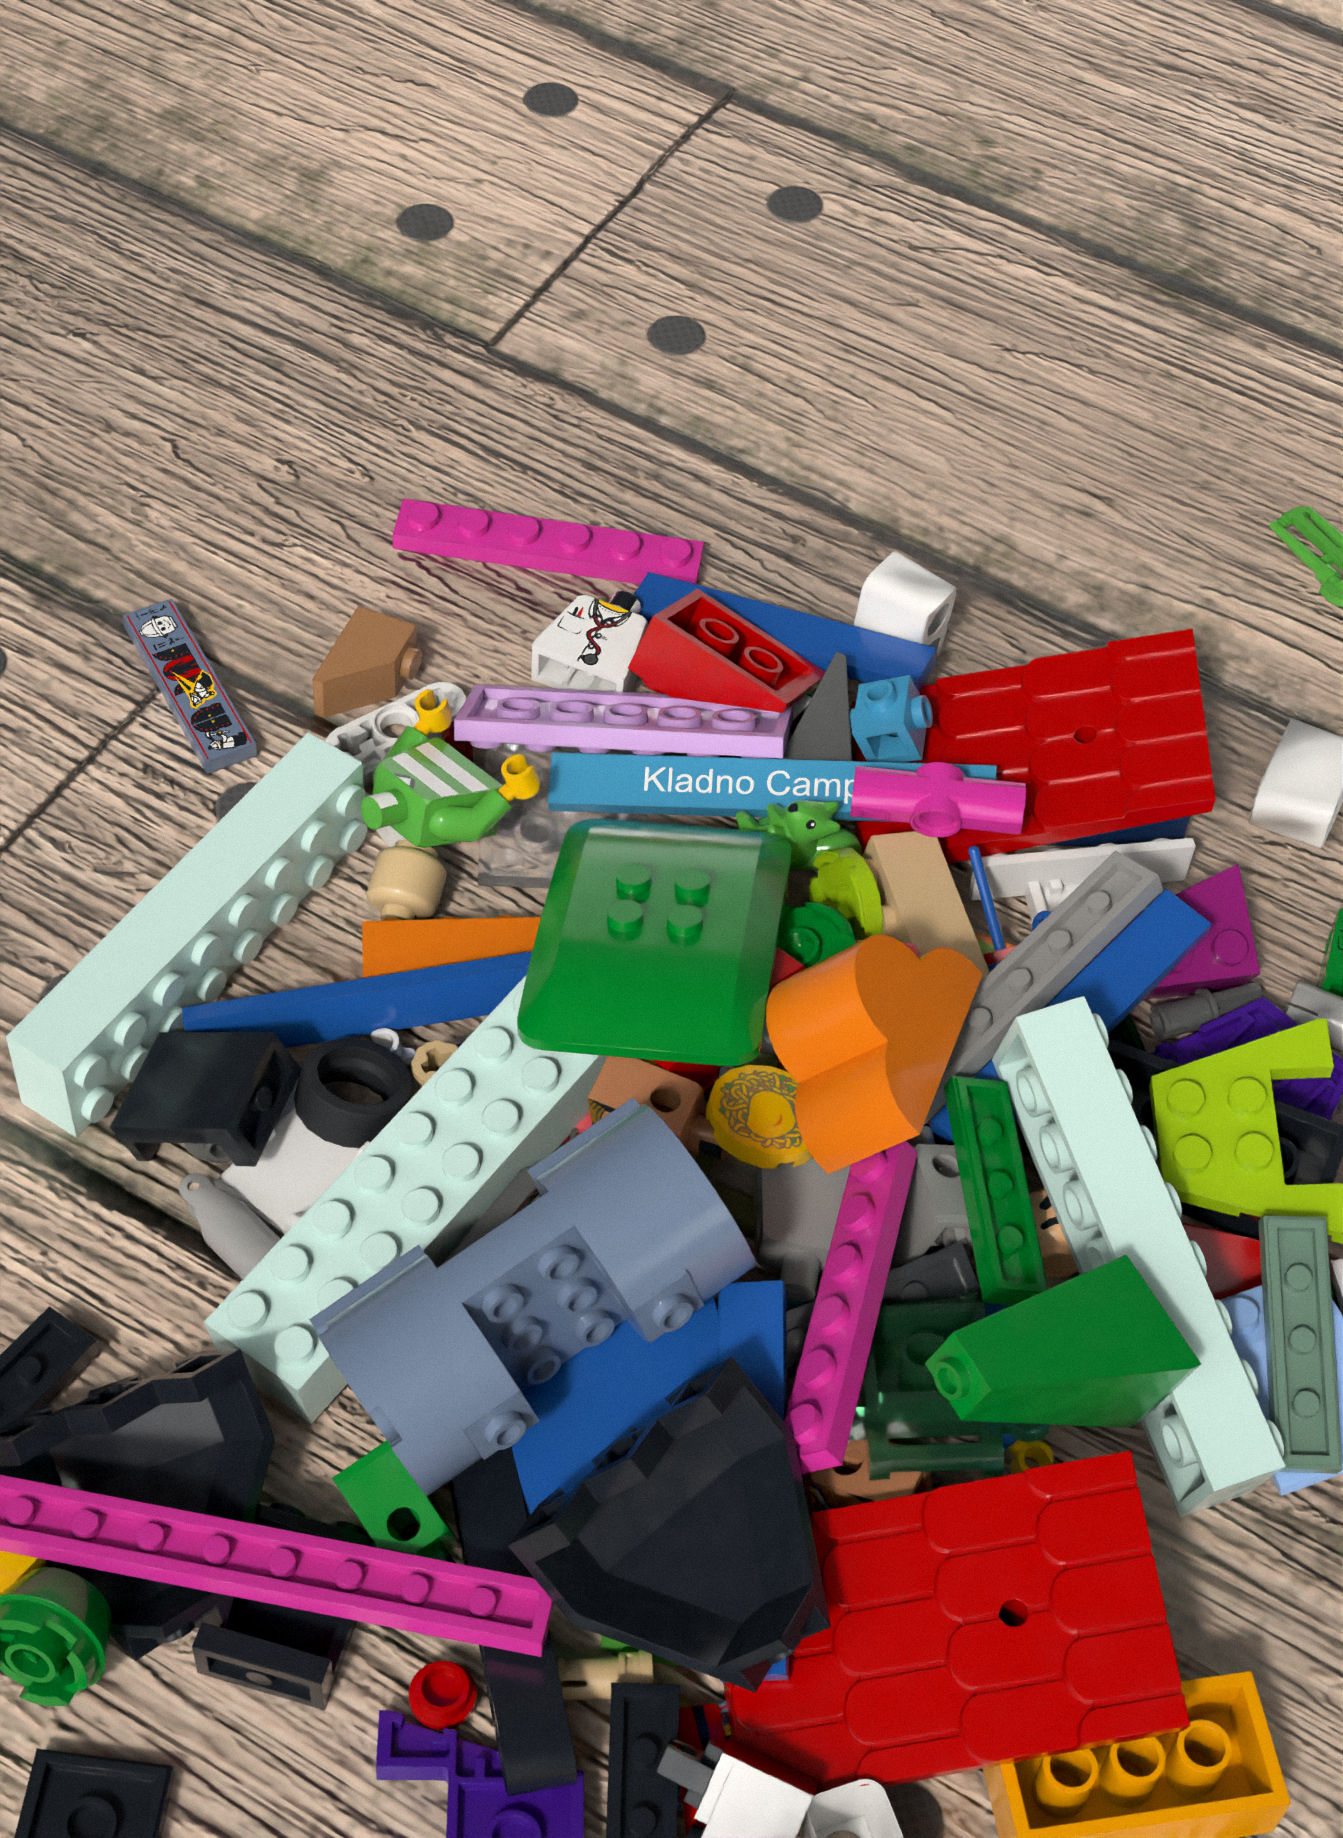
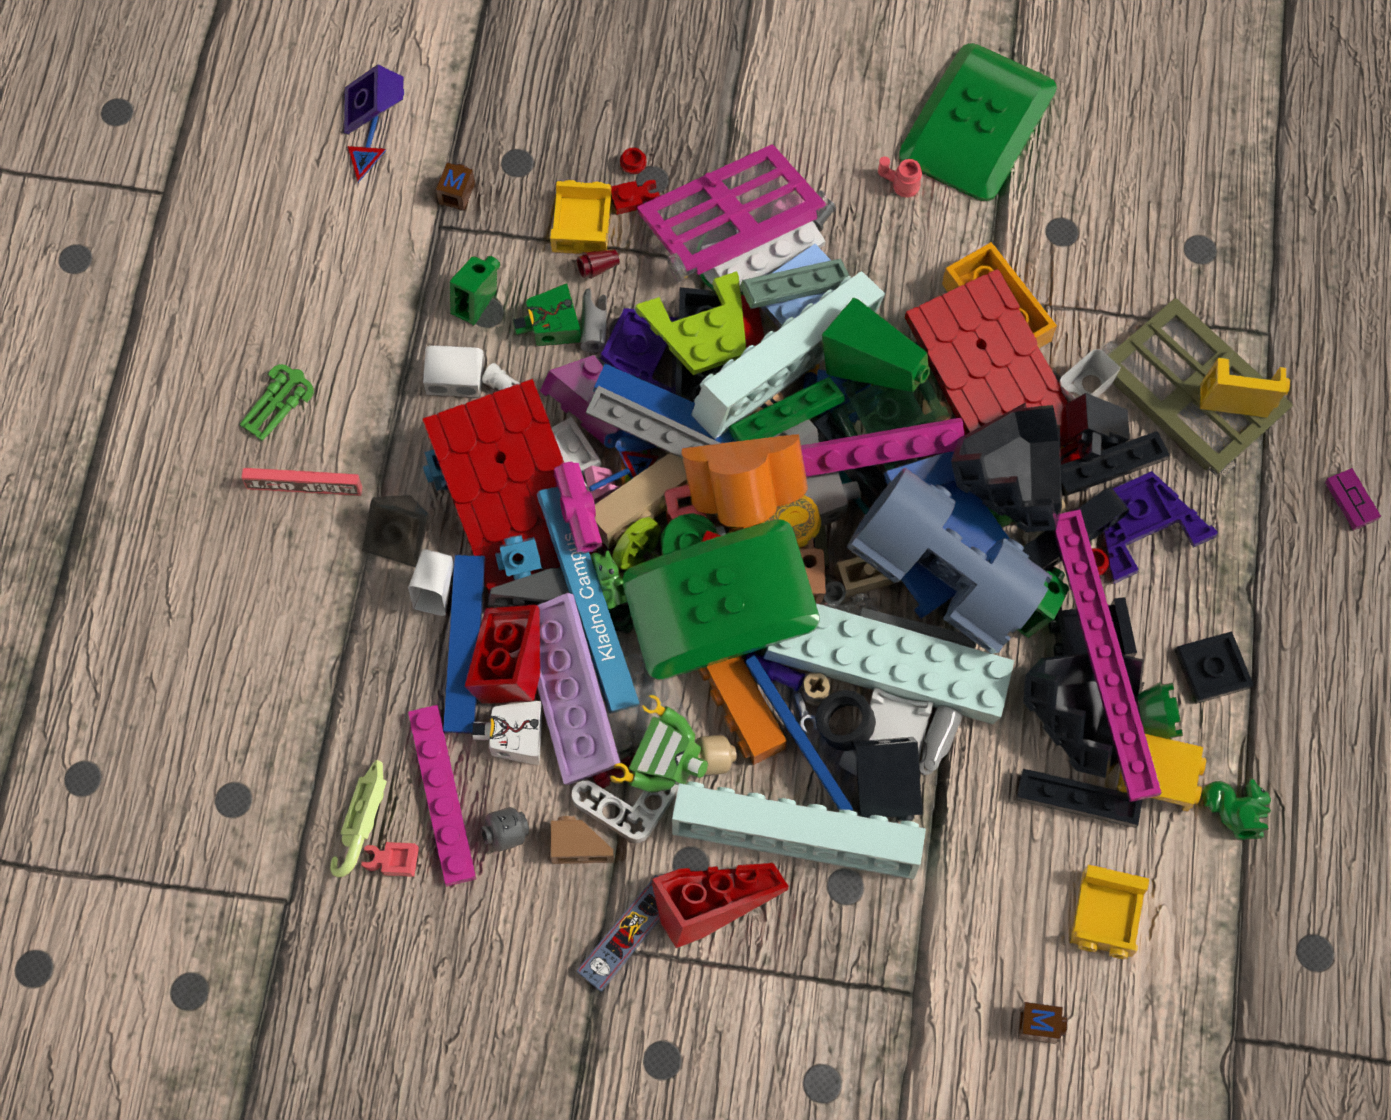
camera: 110 degrees left, 15 degrees up
(169, 783) = (704, 901): none -> red wedge
(443, 585) = (505, 829): none -> dark grey head
(476, 459) = (396, 860): none -> coral plate
(559, 438) = (360, 817): none -> yellowish green plate
(1010, 906) = (595, 474): none -> bright pink bracket
(1033, 616) = (395, 529): none -> clear smoke slope
(1167, 537) = (302, 481): none -> coral tile
(1270, 847) = (497, 378): none -> white pin

